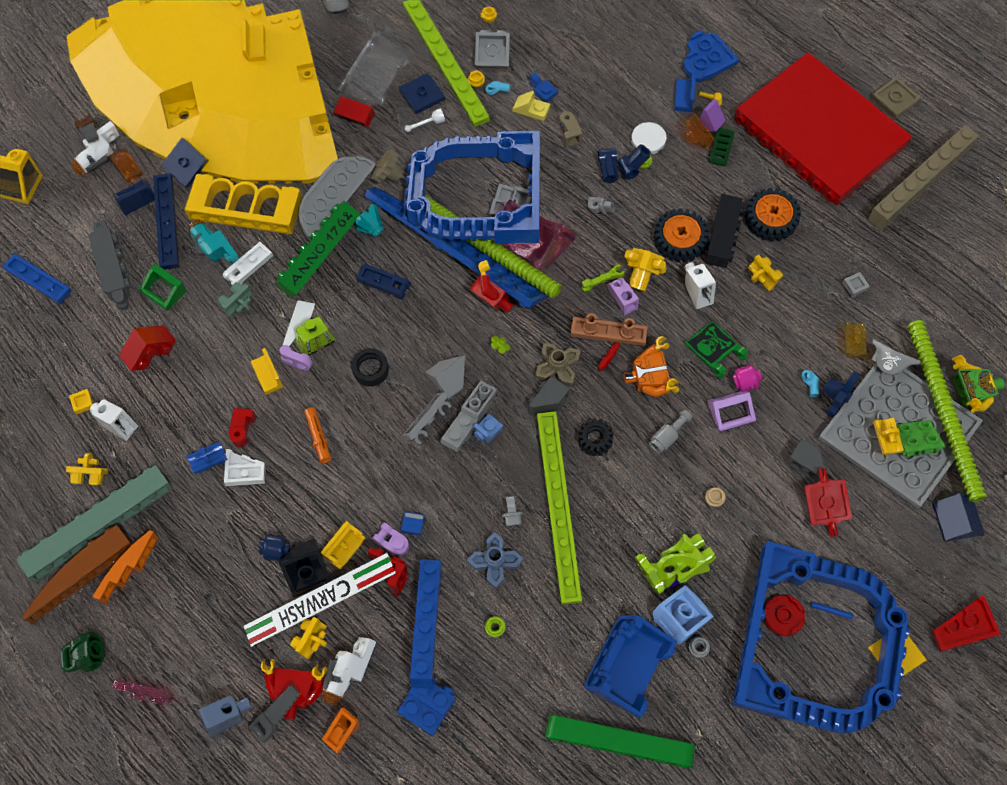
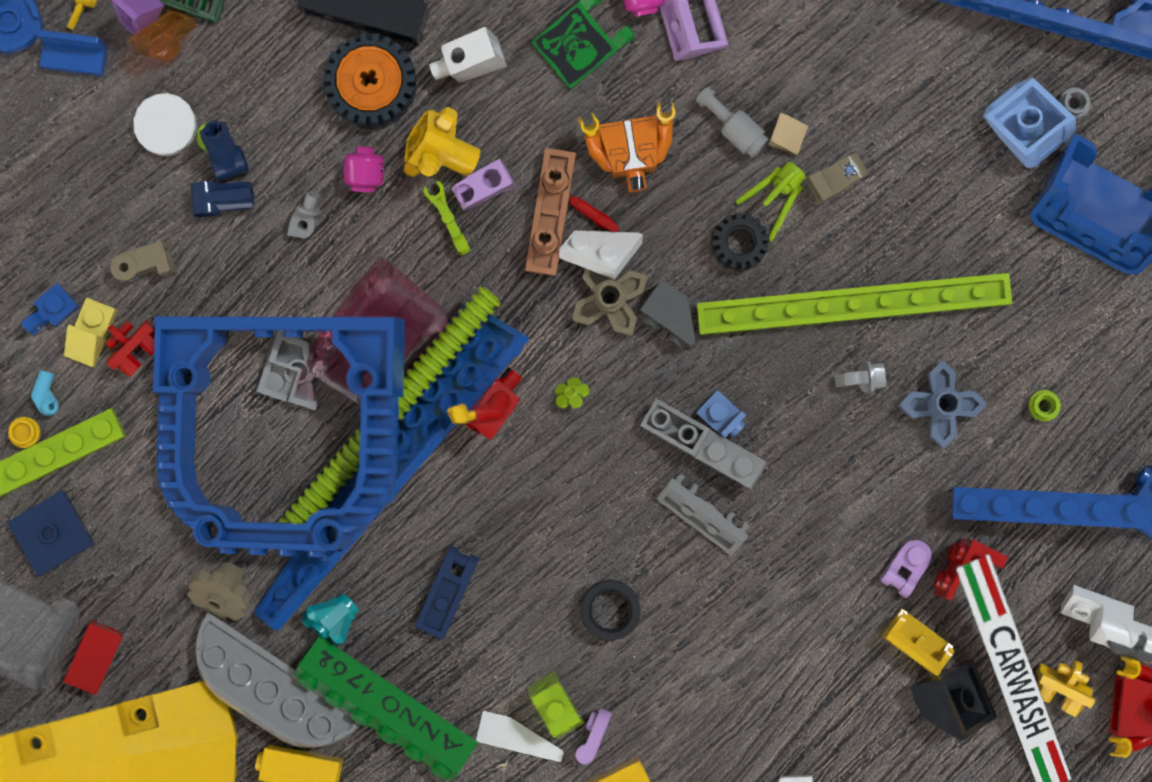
camera: 90 degrees left, 20 degrees up
(274, 547) = (924, 751): dark blue head -> none
(320, 442) = (730, 692): orange pin -> none
(412, 523) = (880, 534): blue tile -> none
(437, 117) = (107, 504): white hinge -> none
(448, 375) = (626, 480): light grey slope -> none
(517, 121) = (122, 355): none -> red hips
(586, 358) = (600, 250): none -> white wing
(628, 232) = (363, 169): none -> dark pink head
(636, 463) = (786, 180): none -> lime plant
(638, 494) = (837, 178): none -> dark tan leg
(665, 465) = (788, 134): none -> tan slope
(686, 564) = (945, 106): lime hips -> none
(715, 497) = (840, 61): tan plate -> none

